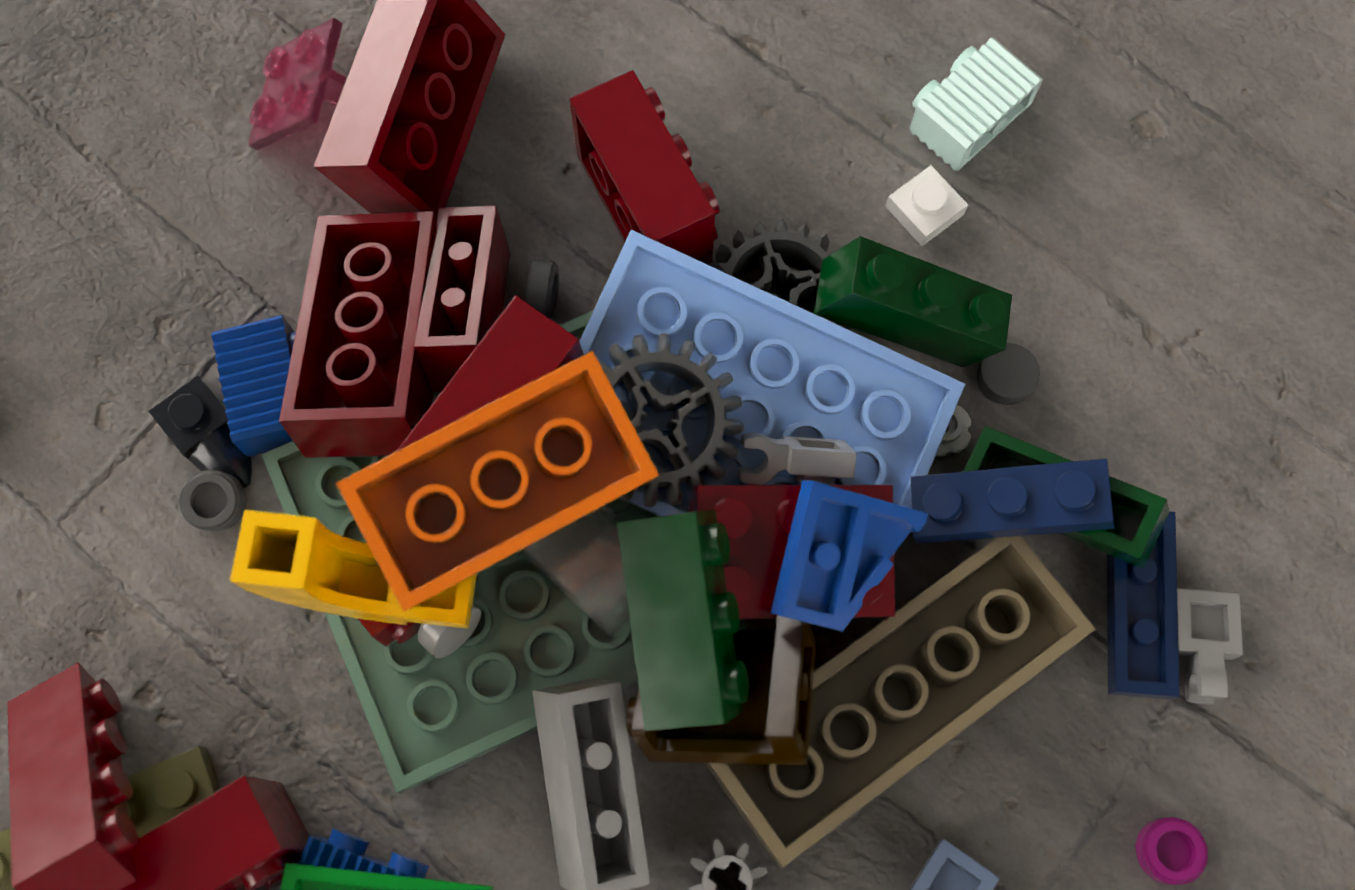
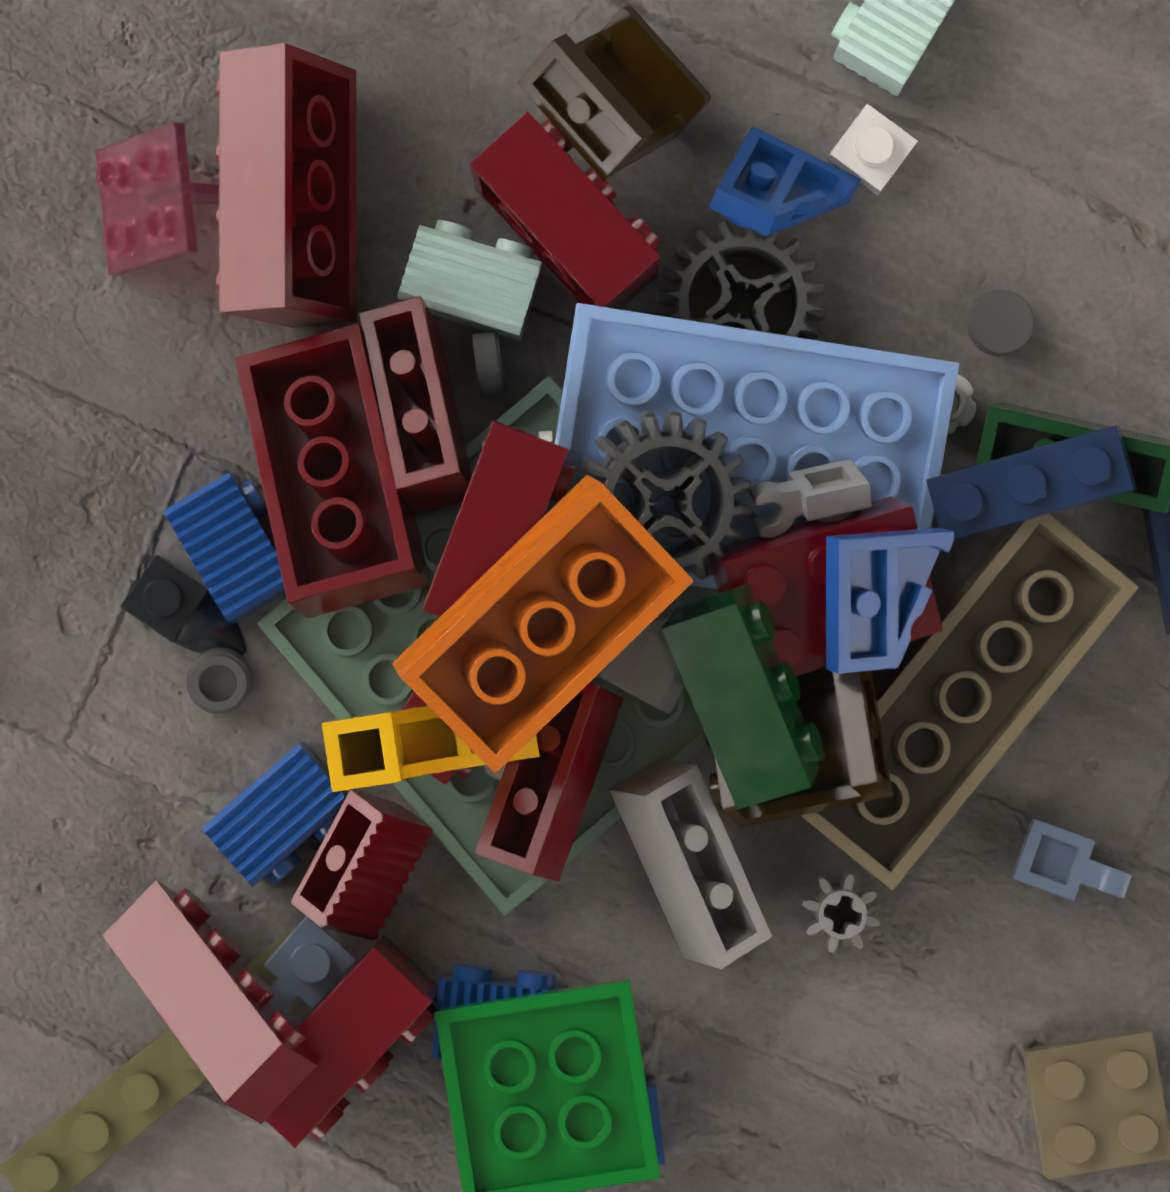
camera: 15 degrees left, 15 degrees up
(179, 783) = (306, 965): none -> sand blue plate
(214, 639) = (277, 817): none -> blue brick
(274, 703) = (361, 865): none -> dark red brick
(469, 673) = (546, 795): none -> dark red brick
(551, 219) = (472, 280): none -> light aqua brick
(710, 98) = (615, 92): none -> dark brown panel
(835, 204) = (779, 185): none -> blue wing
(913, 303) = (886, 287): dark green brick -> none

